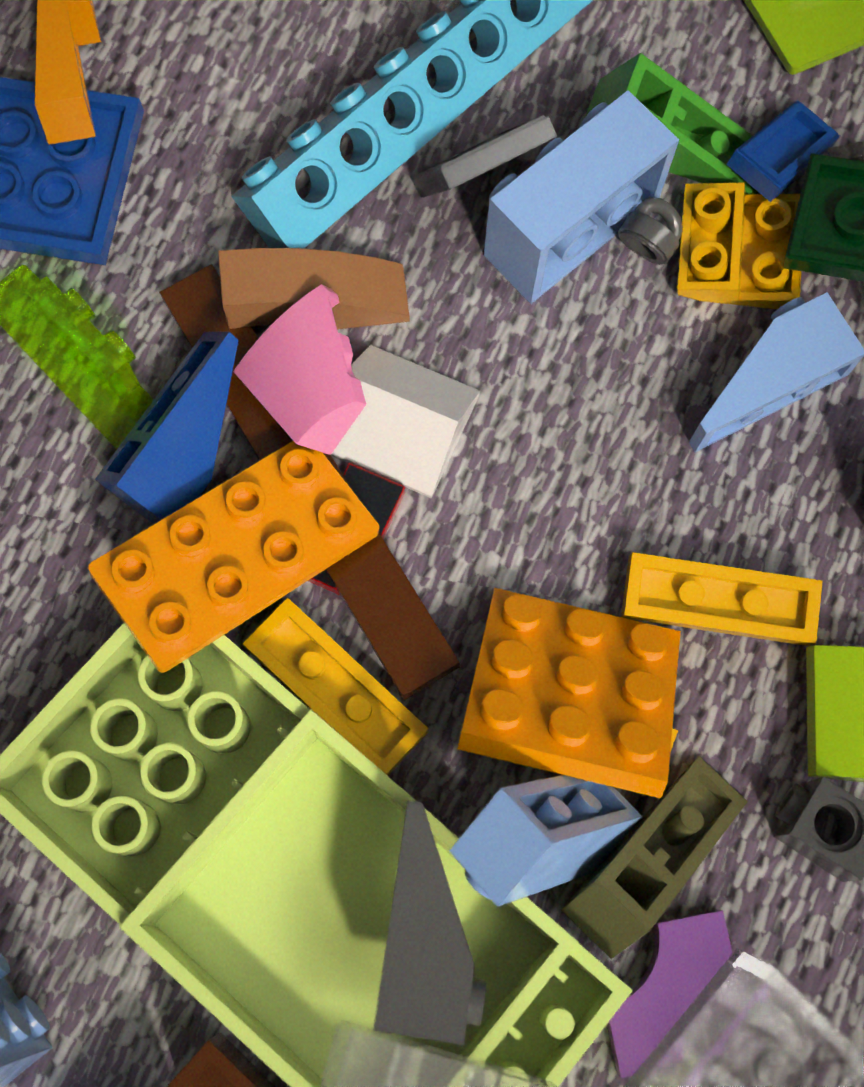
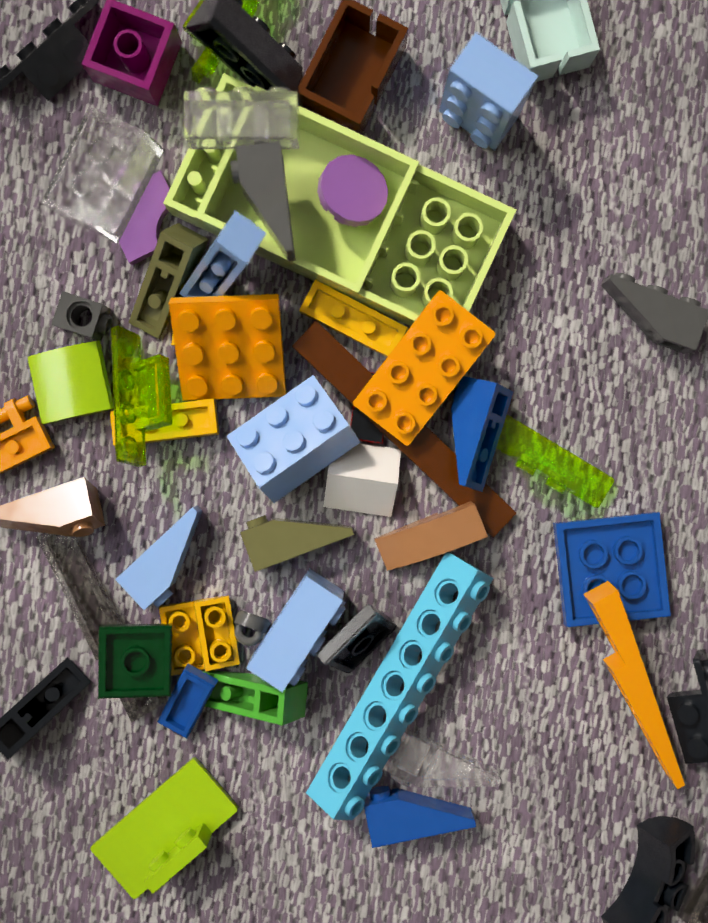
camera: 165 degrees right, 15 degrees up
(263, 917) = (352, 190): none -> medium lavender tile
(305, 373) = (417, 477): bright pink slope -> none
(502, 498) = (293, 439): none -> light blue brick
(556, 349) = (284, 539): none -> olive slope
(757, 649) = (140, 395): none -> clear neon green bracket

